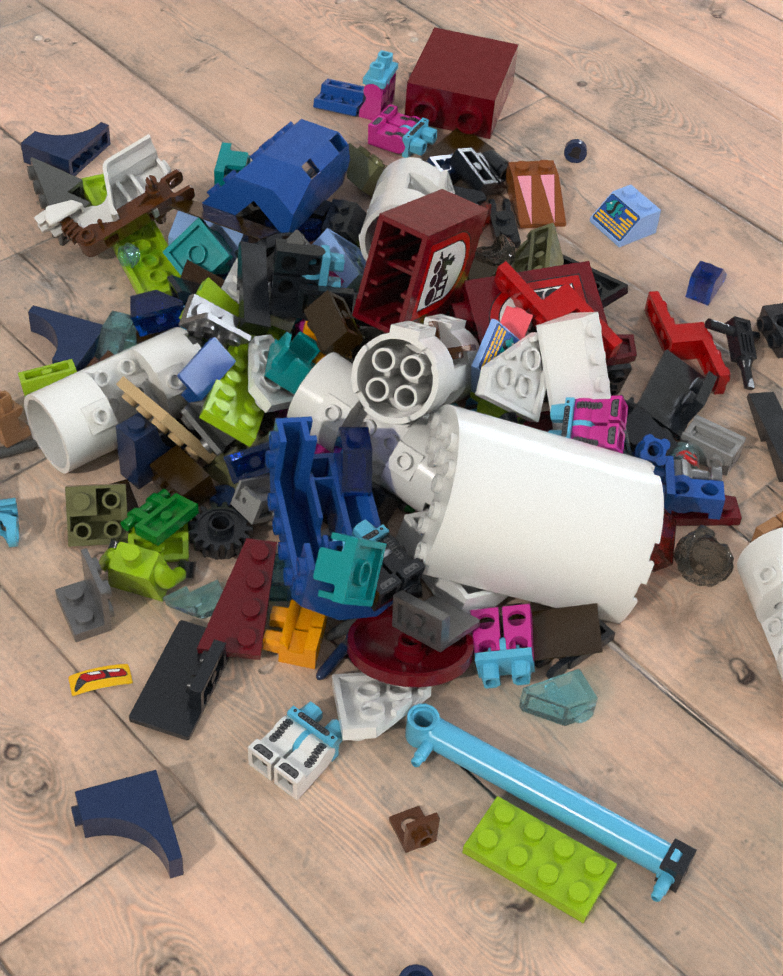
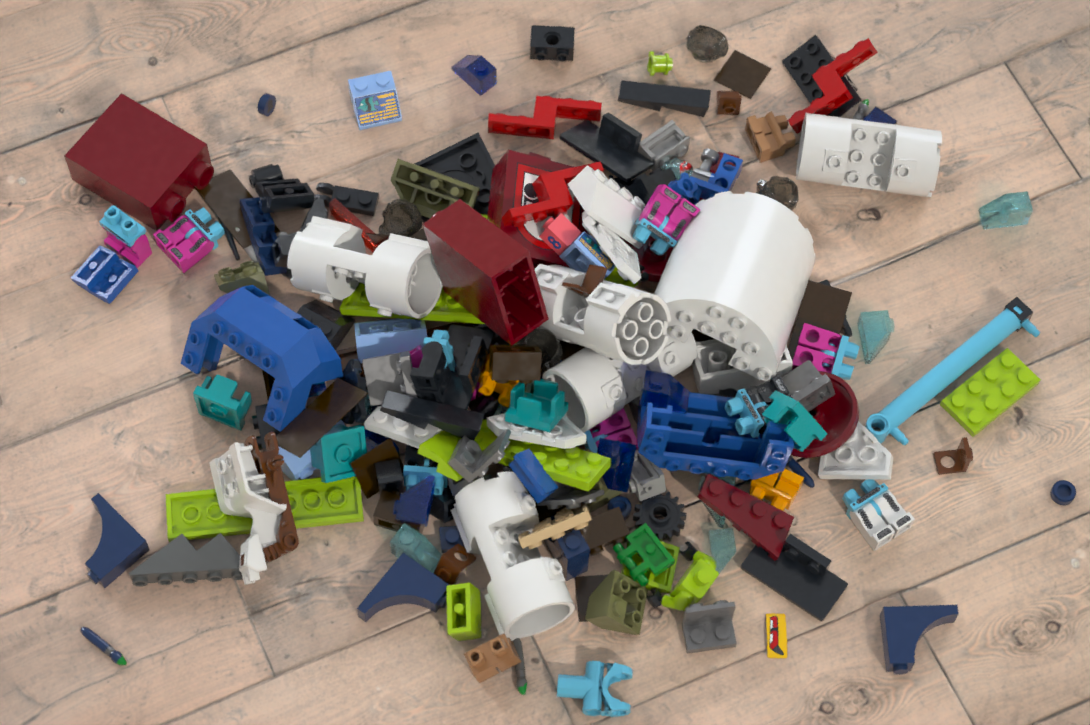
camera: 70 degrees left, 15 degrees up
(128, 255) = (310, 514): clear light blue plate -> none
(535, 193) = (320, 158): dark orange slope -> none
(740, 344) = (565, 80): black piece -> none

